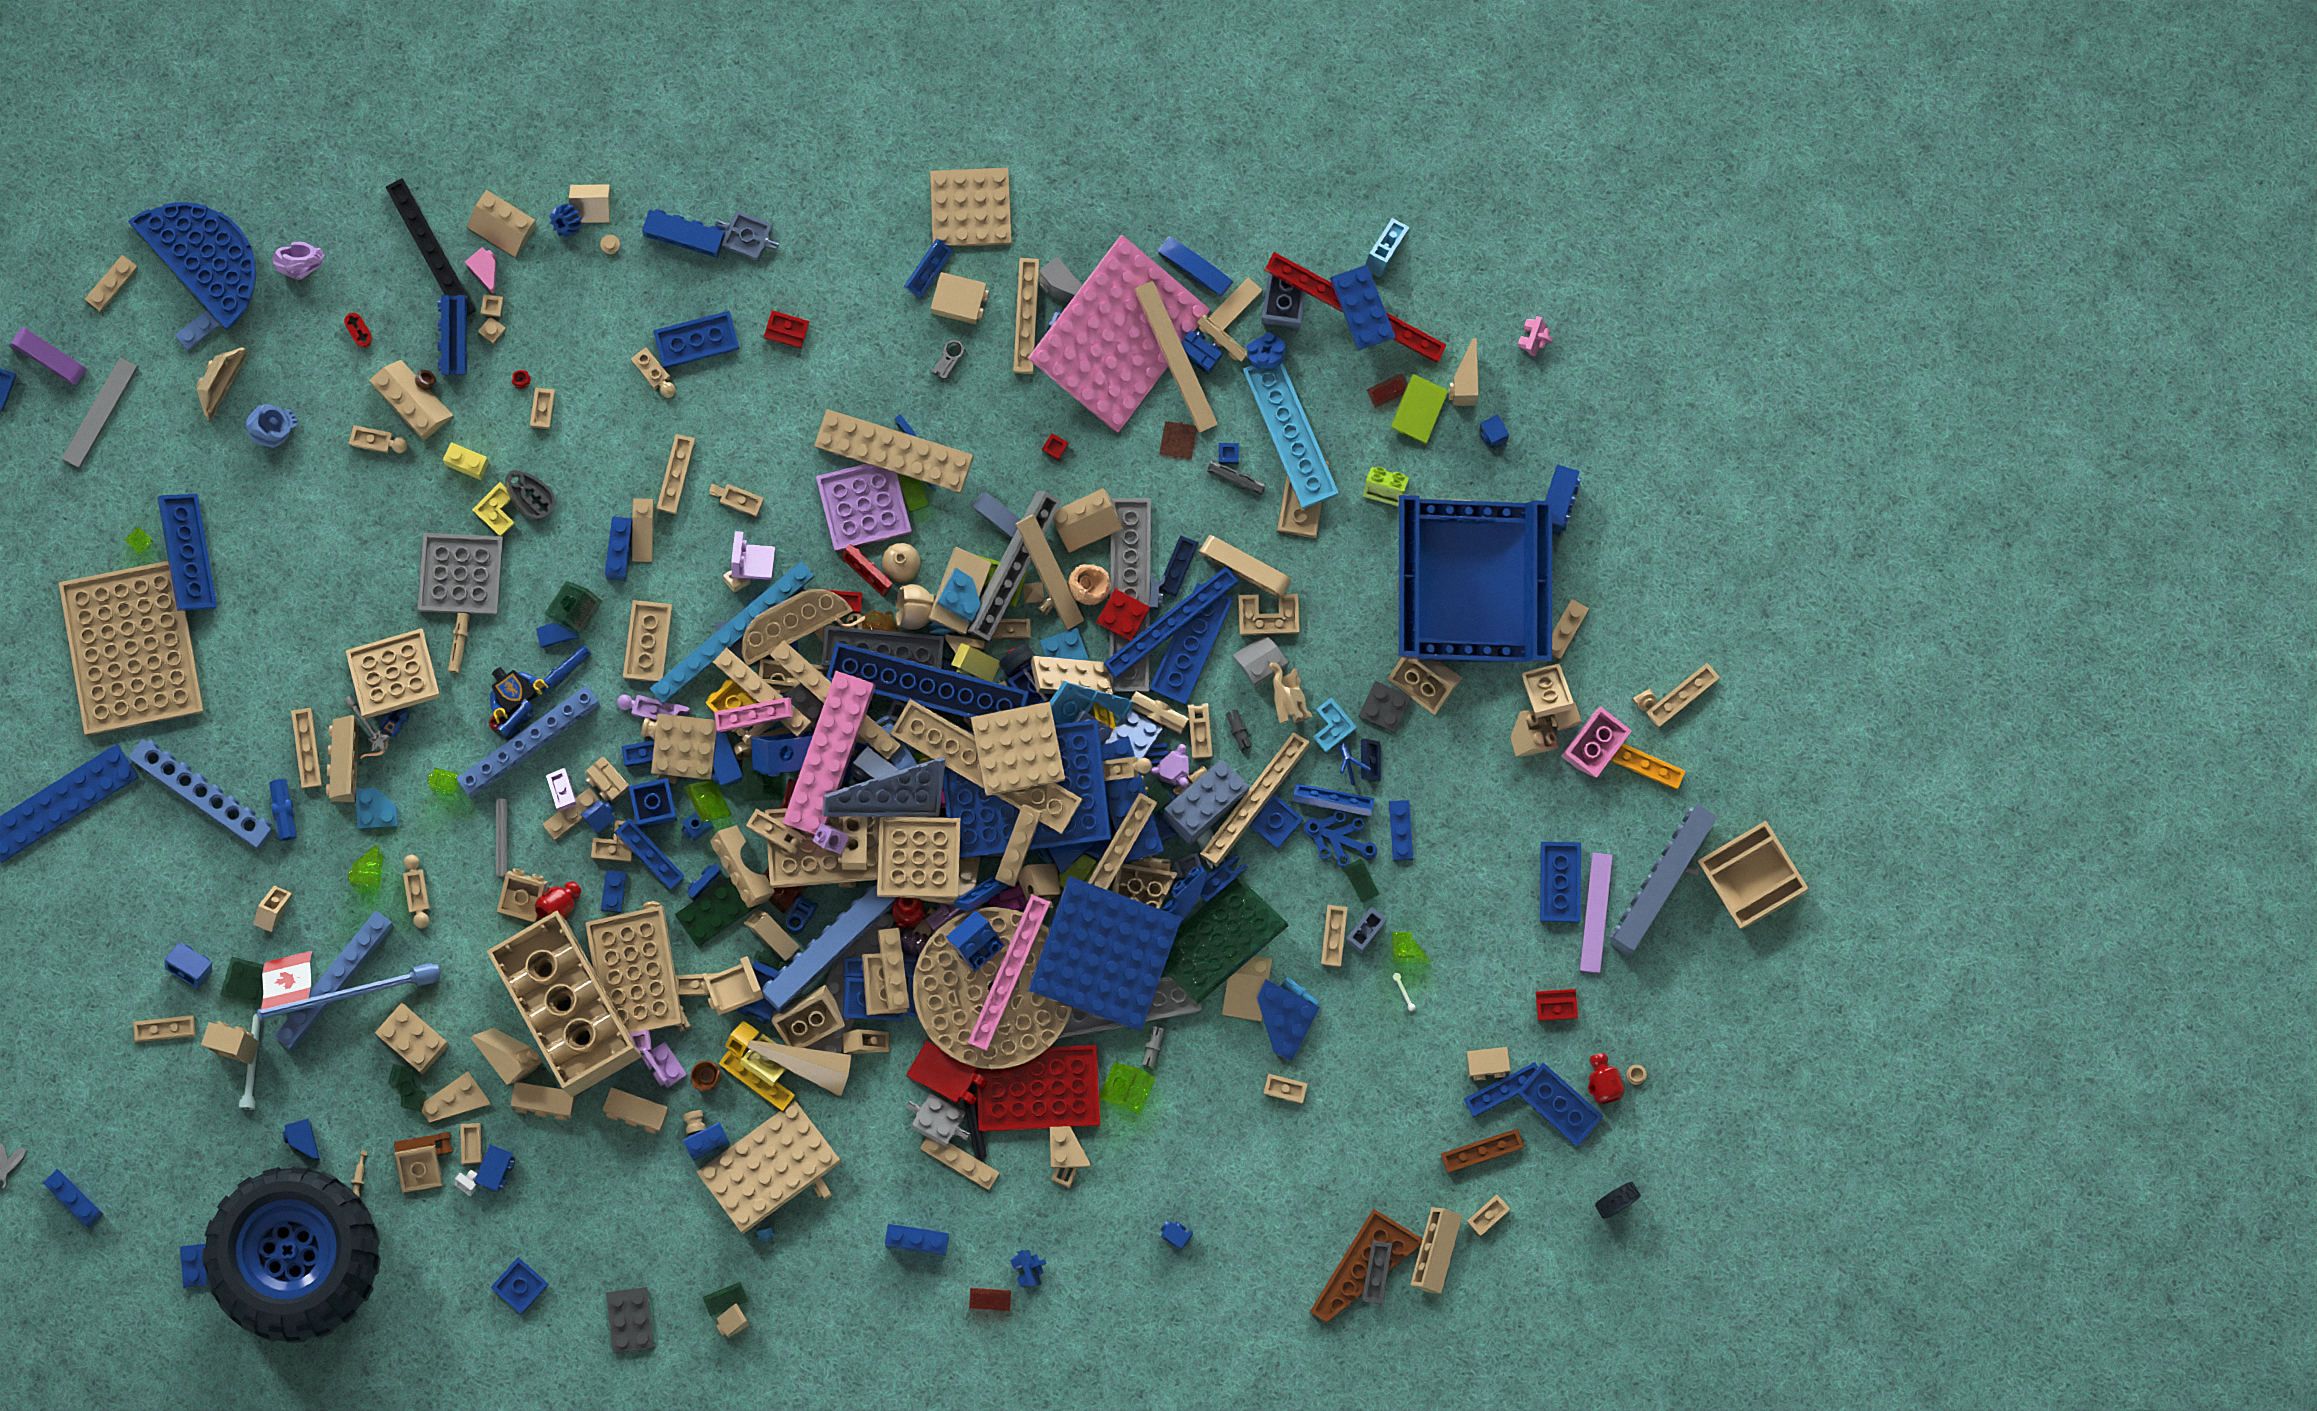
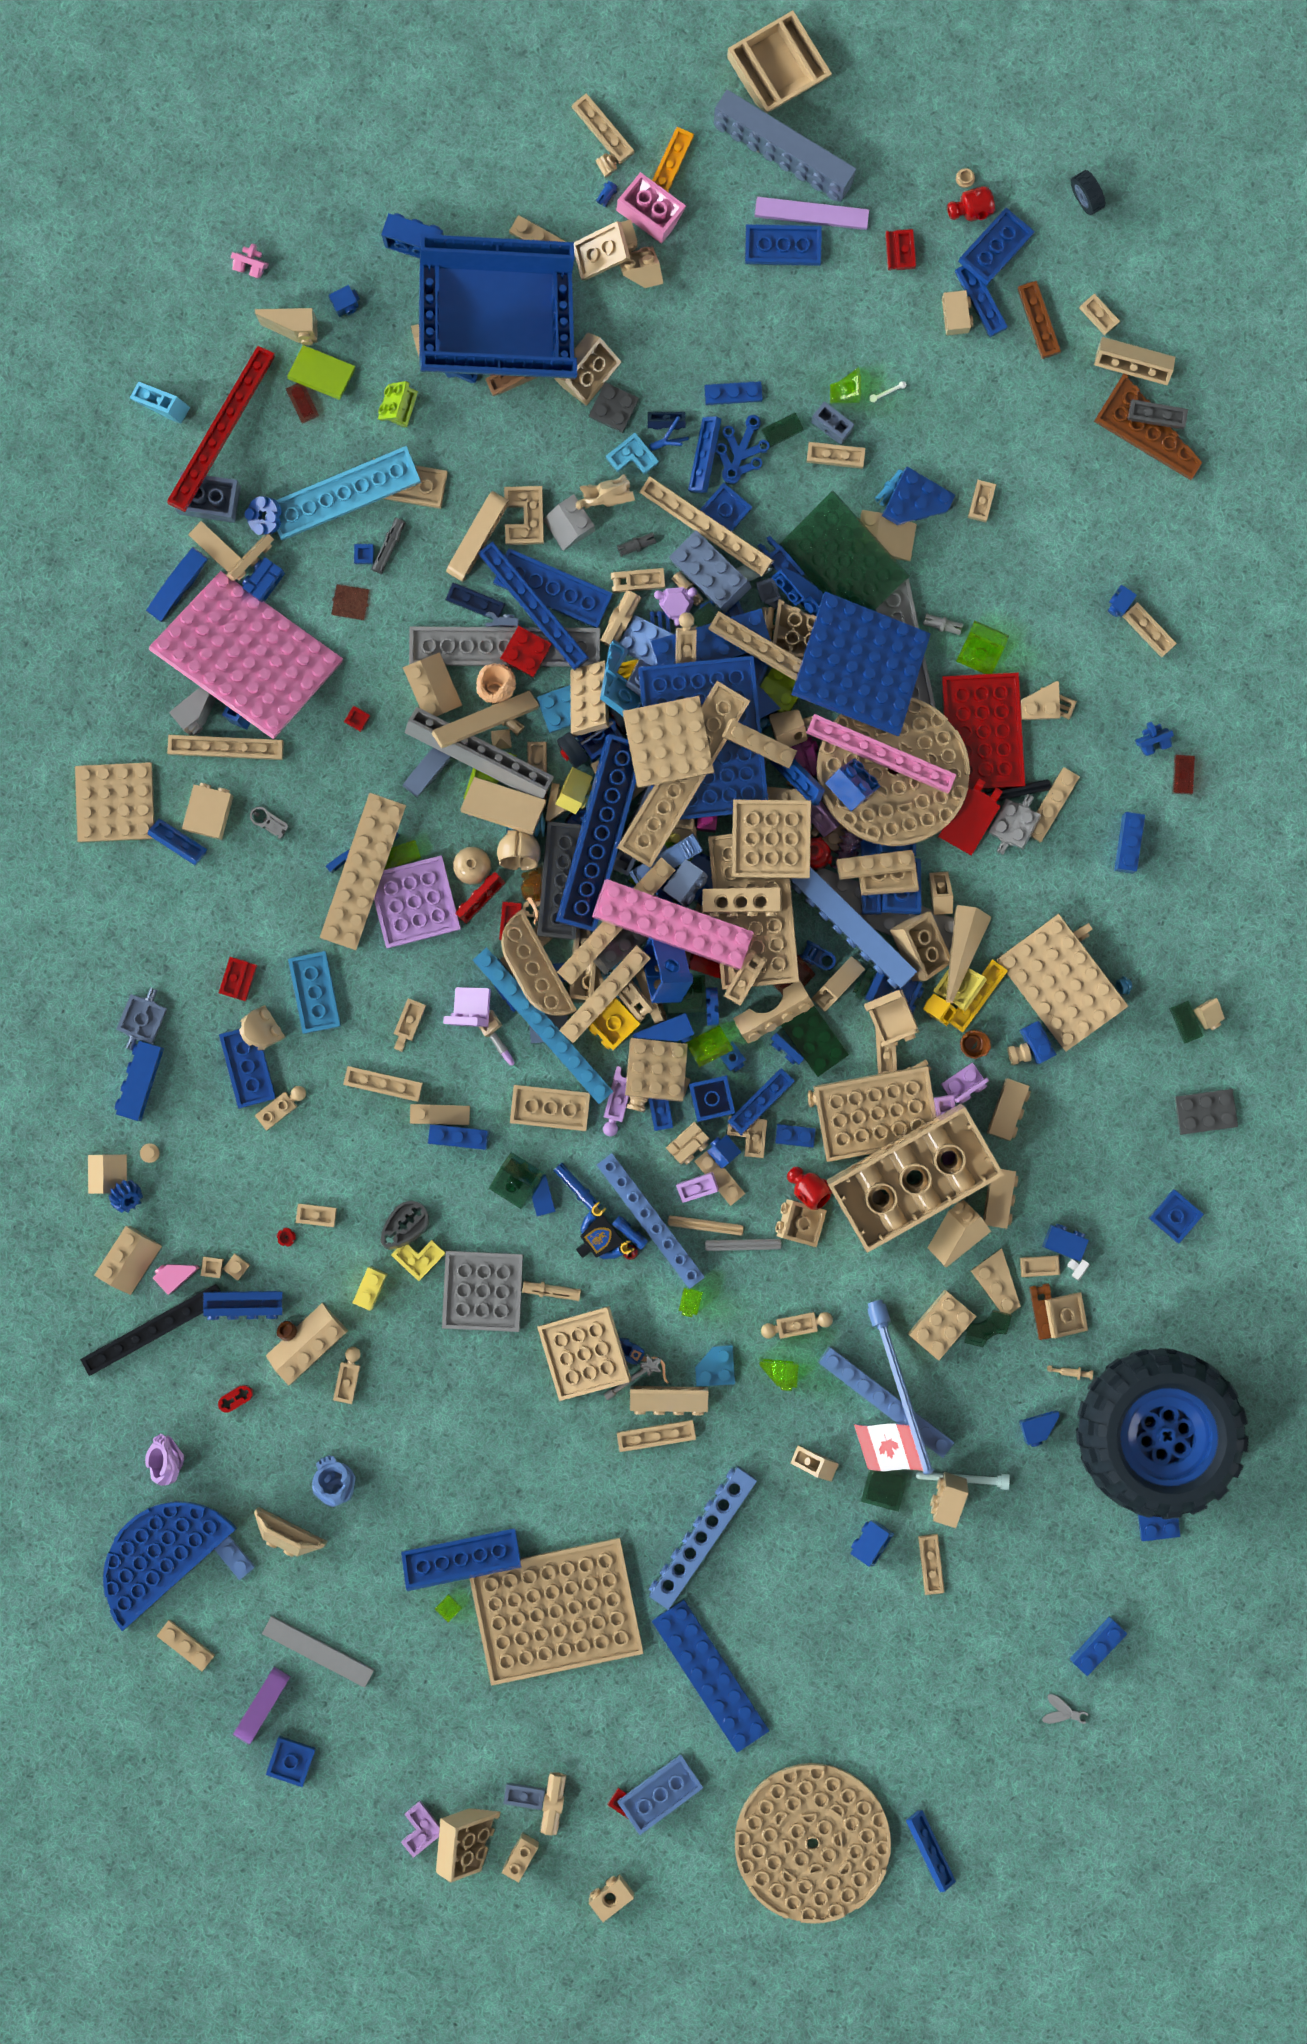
camera: 85 degrees left, 10 degrees up
(282, 809) = (717, 1457): blue piece -> none
(522, 799) = (705, 1225): none -> tan axle
(710, 593) = (502, 1049): none -> light grey piece
(733, 351) = (260, 1029): none -> tan slope
(747, 803) = (712, 1006): none -> blue plate
(753, 714) = (628, 1001): bright pink tile -> none
(771, 405) = (314, 992): none -> dark azure plate
(830, 838) = (757, 921): lavender brick -> none
(899, 794) = (711, 854): sand blue wing -> none
(960, 596) = (509, 804): dark azure plate -> none
(1146, 1265) = (1149, 629): none -> tan plate
(1175, 356) = (269, 600): tan tile -> none
(1362, 307) = (222, 419): blue plate -> none
(1613, 699) = (606, 194): none -> blue pin

